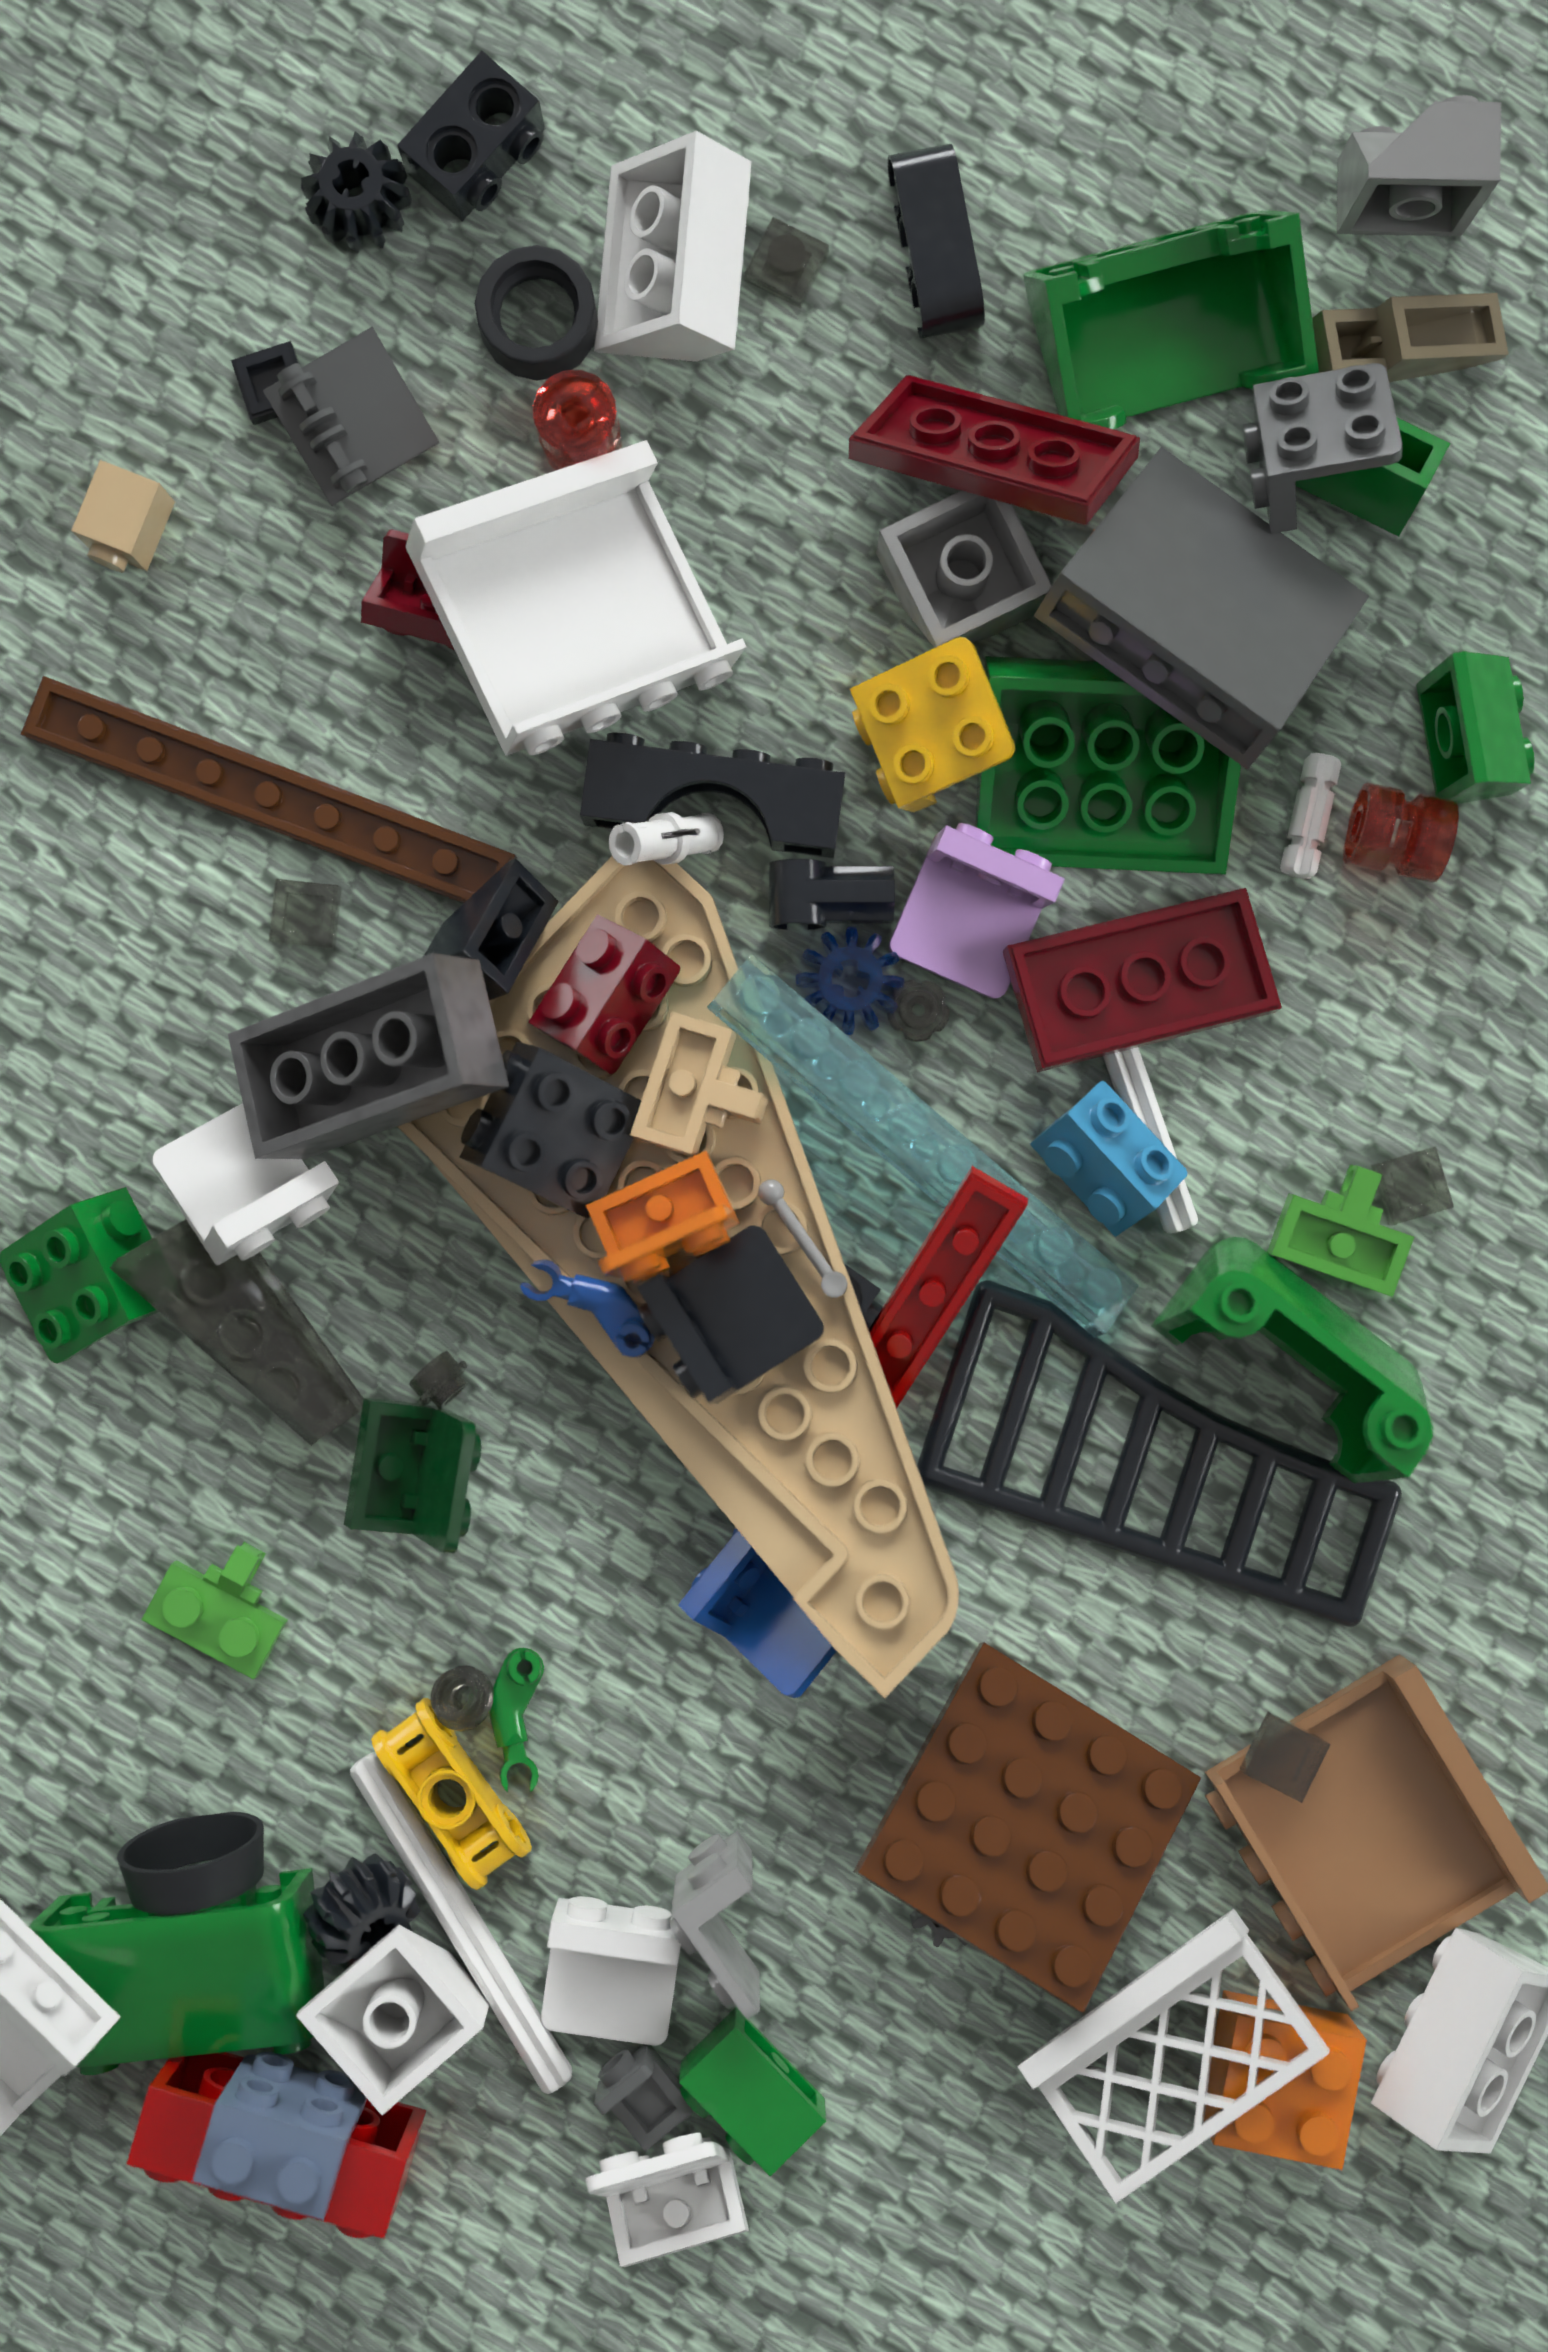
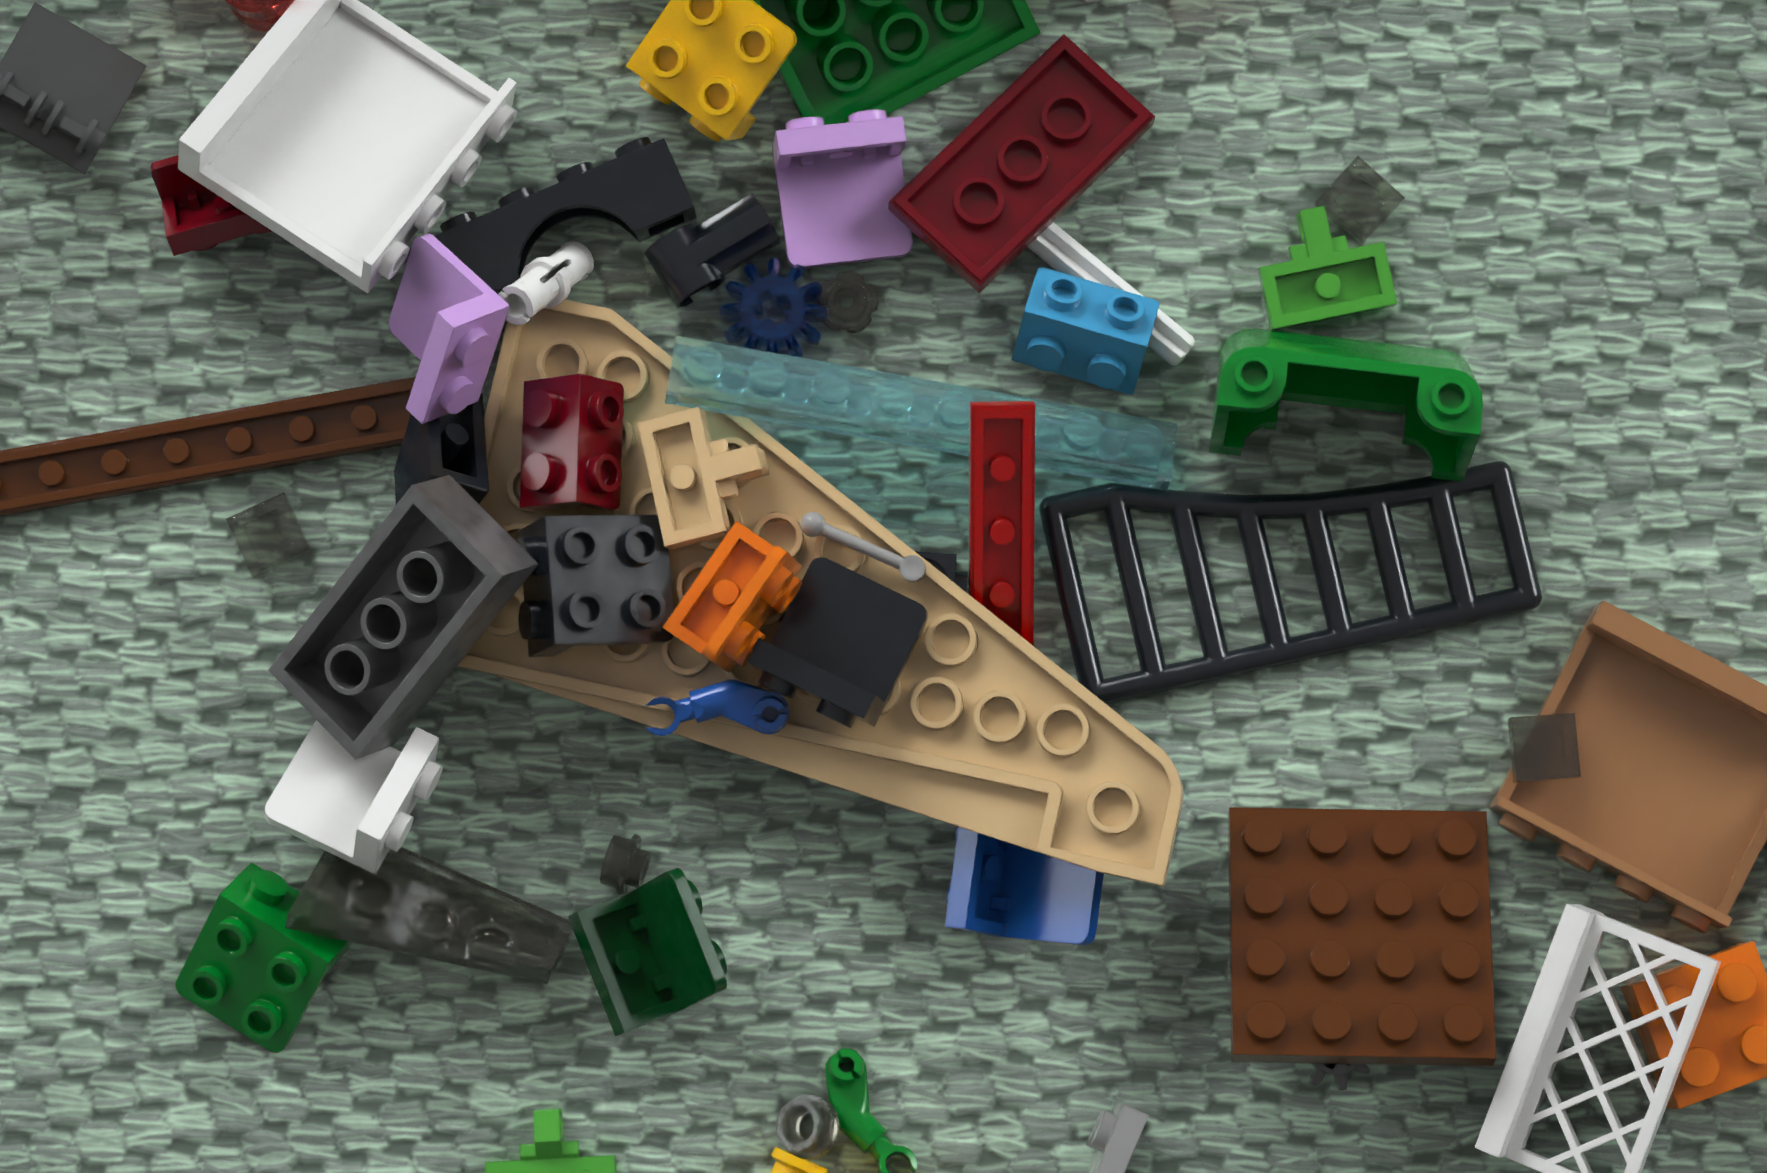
camera: 25 degrees left, 5 degrees down
(561, 828) = (449, 324): none -> lavender bracket

